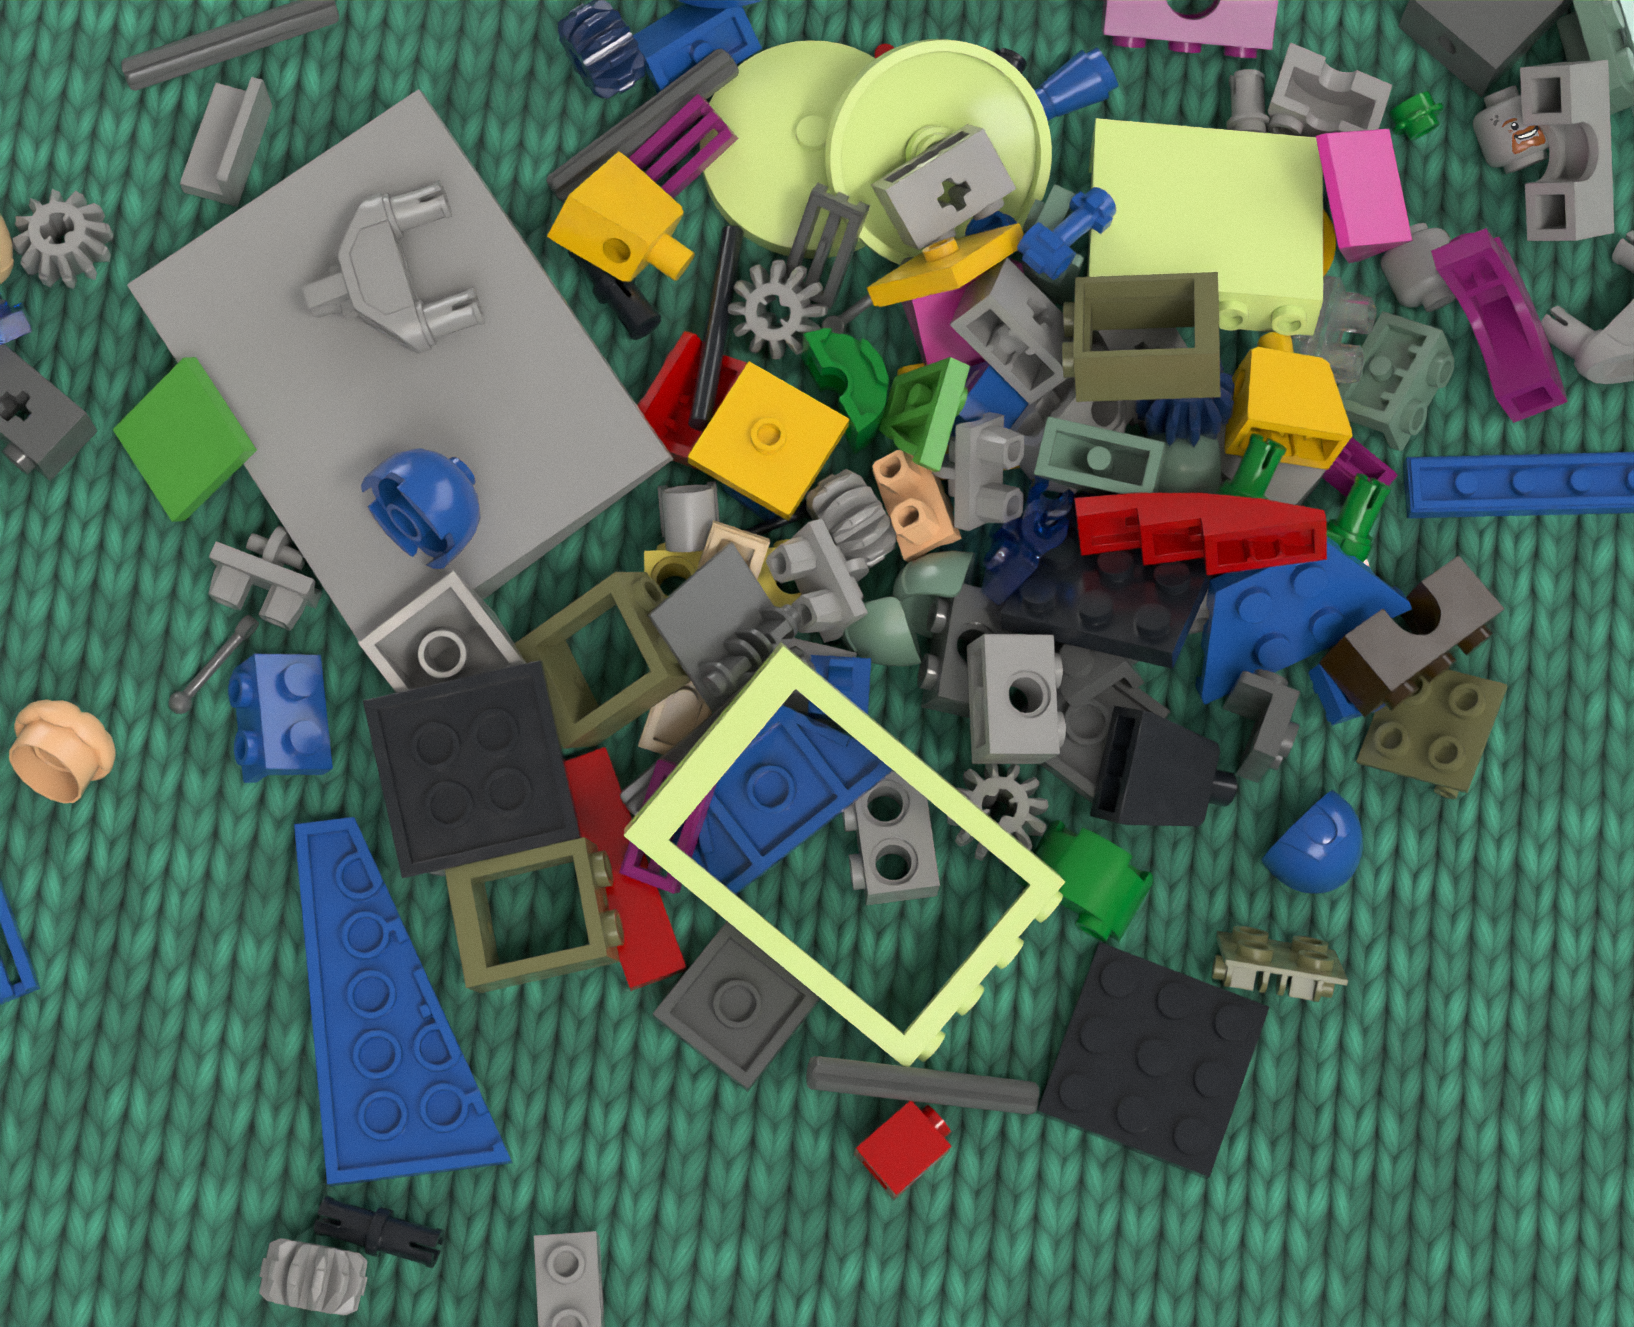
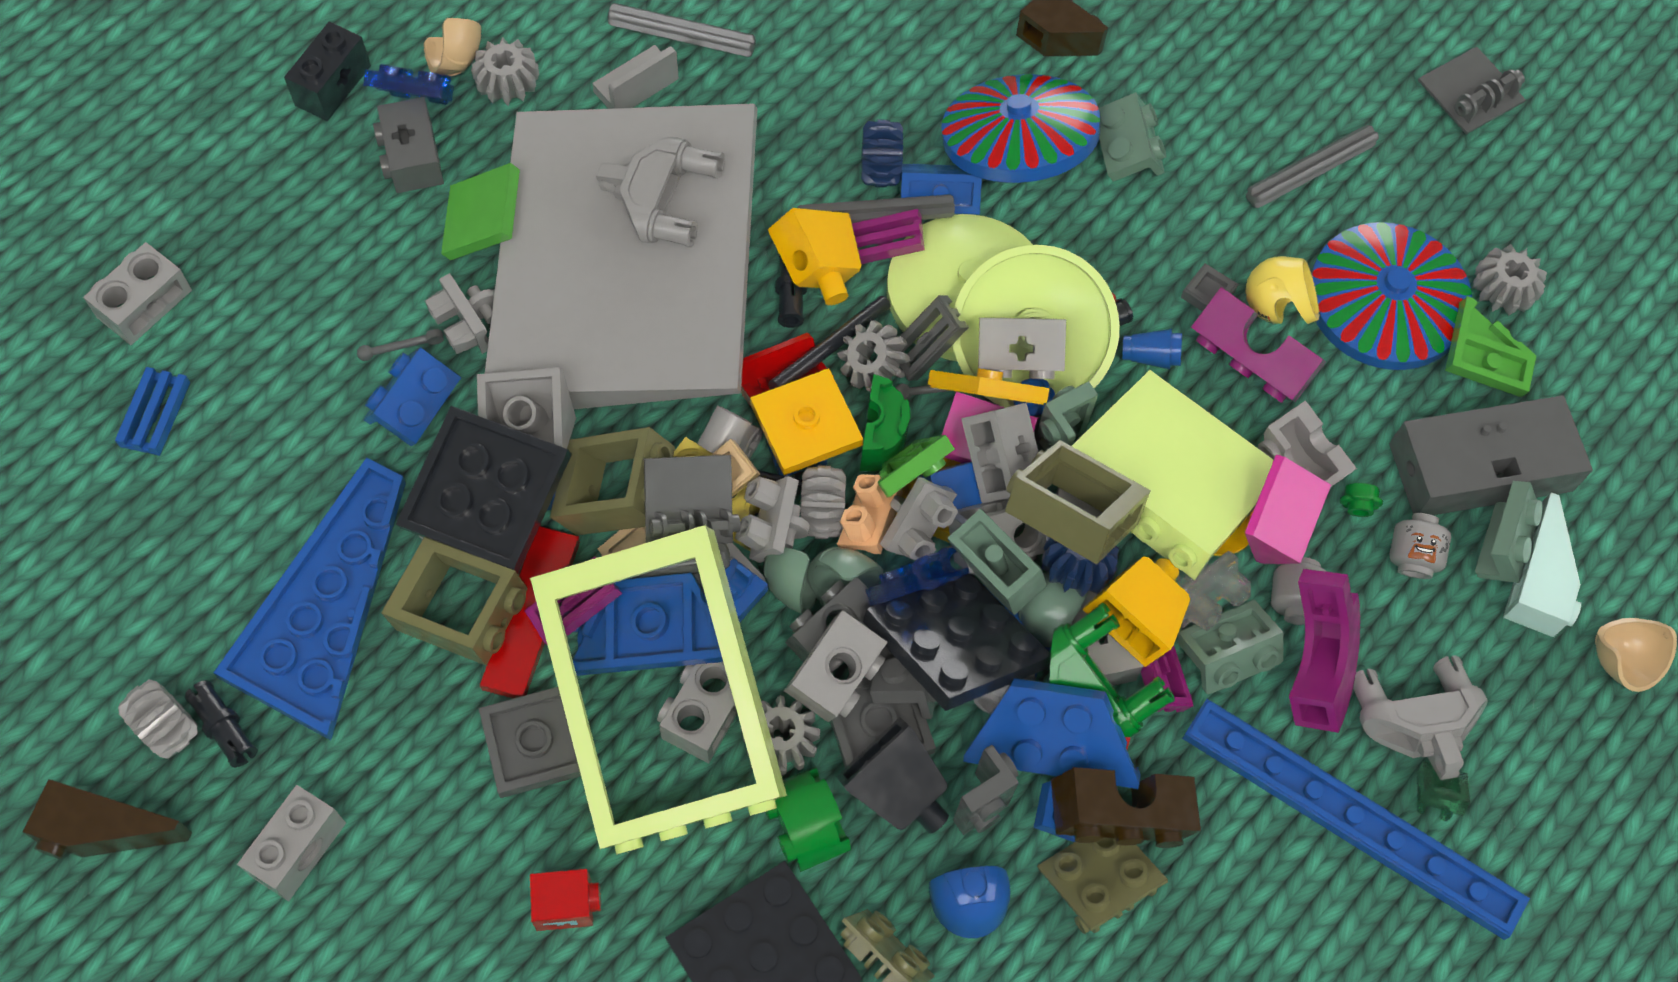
camera: 35 degrees right, 10 degrees down
(60, 749) = (275, 329): light nougat piece -> none
(425, 503) = (576, 320): blue cylinder -> none
(922, 1085) = (602, 866): dark grey axle -> none
(1051, 250) = (1055, 414): blue bar -> none
(1221, 529) = (1036, 643): red slope -> none
(1248, 102) = (1256, 423): light grey pin -> none
(1574, 111) = (1464, 552): light grey arch -> none

